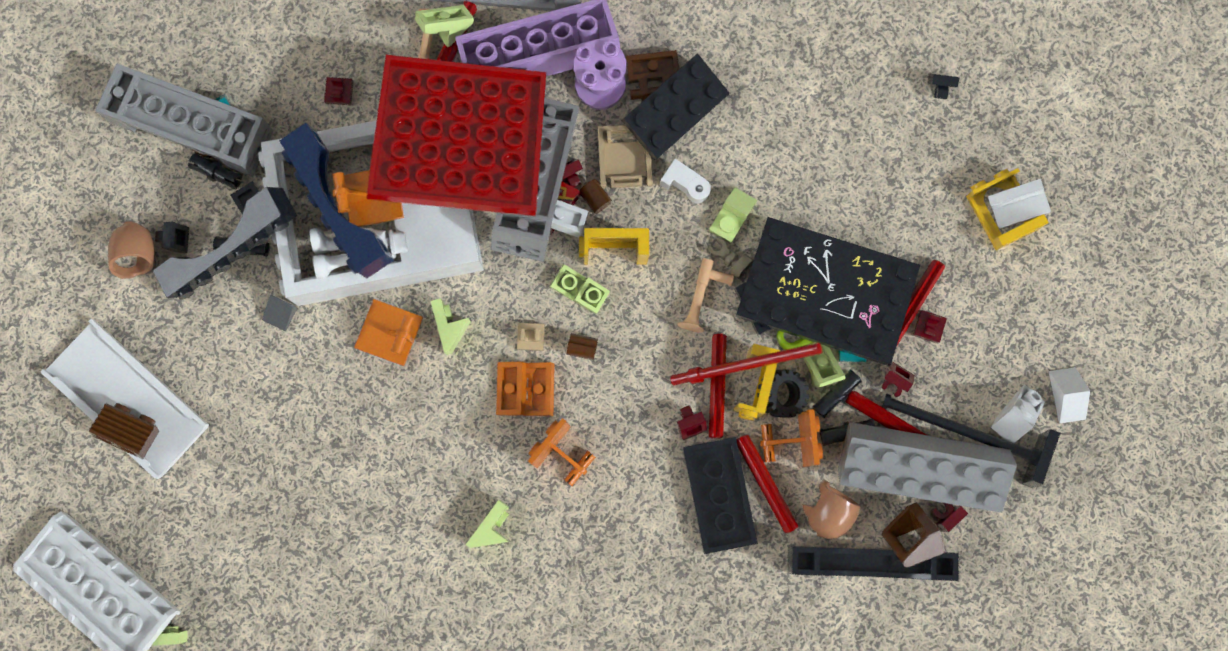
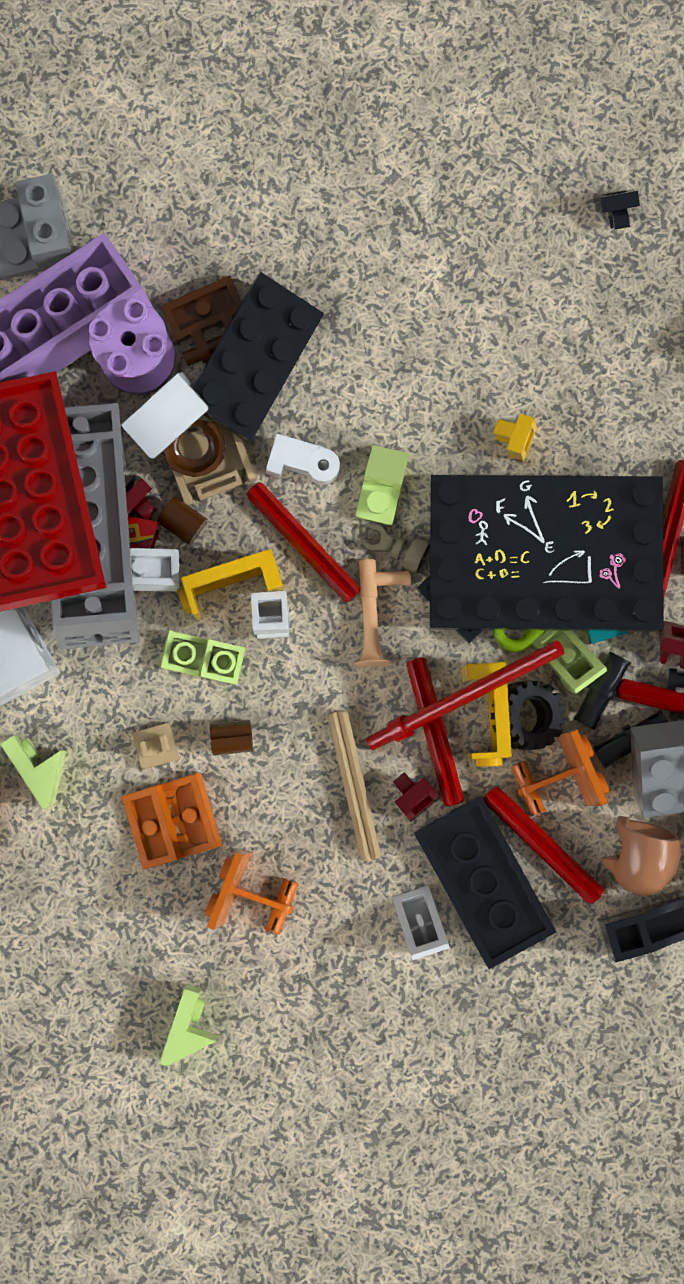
camera: 15 degrees left, 5 degrees up
(607, 124) = (165, 415): none -> white panel
(623, 164) = (204, 464): none -> reddish brown piece
(634, 274) = (270, 614): none -> white leg
(653, 402) = (354, 786): none -> tan axle
(668, 507) = (420, 922): none -> white slope
(670, 235) = (303, 542): none -> red axle
(831, 209) = (517, 436): none -> yellow tile

